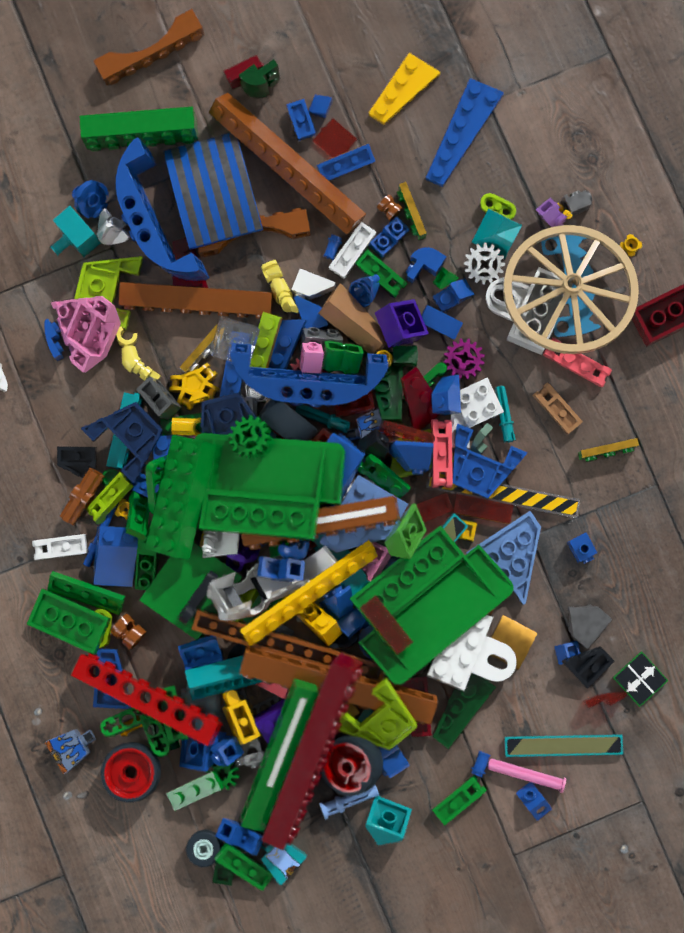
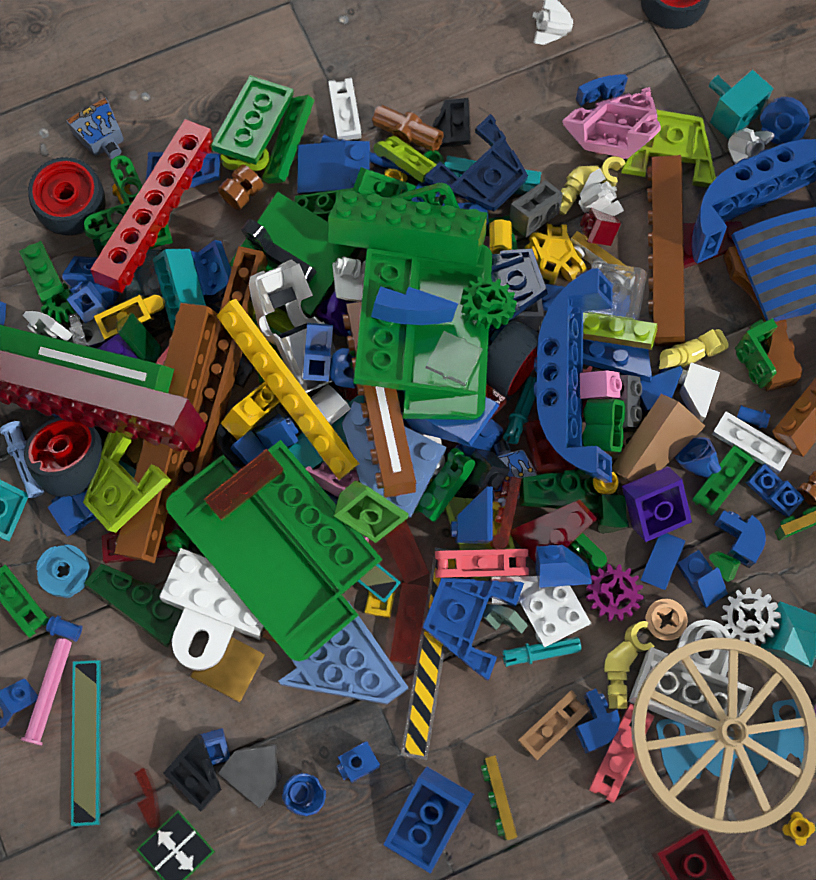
camera: 80 degrees right, 10 degrees down
(150, 348) = (599, 195): none -> white brick
(177, 349) = (599, 227): none -> dark red slope
(241, 789) = (44, 324): none -> white slope
(254, 494) = (413, 308): none -> blue slope
(262, 709) = (138, 338): none -> dark green slope
(283, 245) = (753, 355): none -> green bracket
(295, 464) = (454, 358): none -> clear piece
(420, 678) = (177, 540): none -> green plate
(437, 777) = (66, 585): none -> dark azure plate
(483, 314) = (678, 618): none -> light nougat gear
(514, 359) = (619, 662): none -> light yellow piece
(561, 375) = (602, 727): none -> blue brick
(604, 586) = (303, 794): none -> blue hair
(621, 499) = (428, 819): none -> blue slope

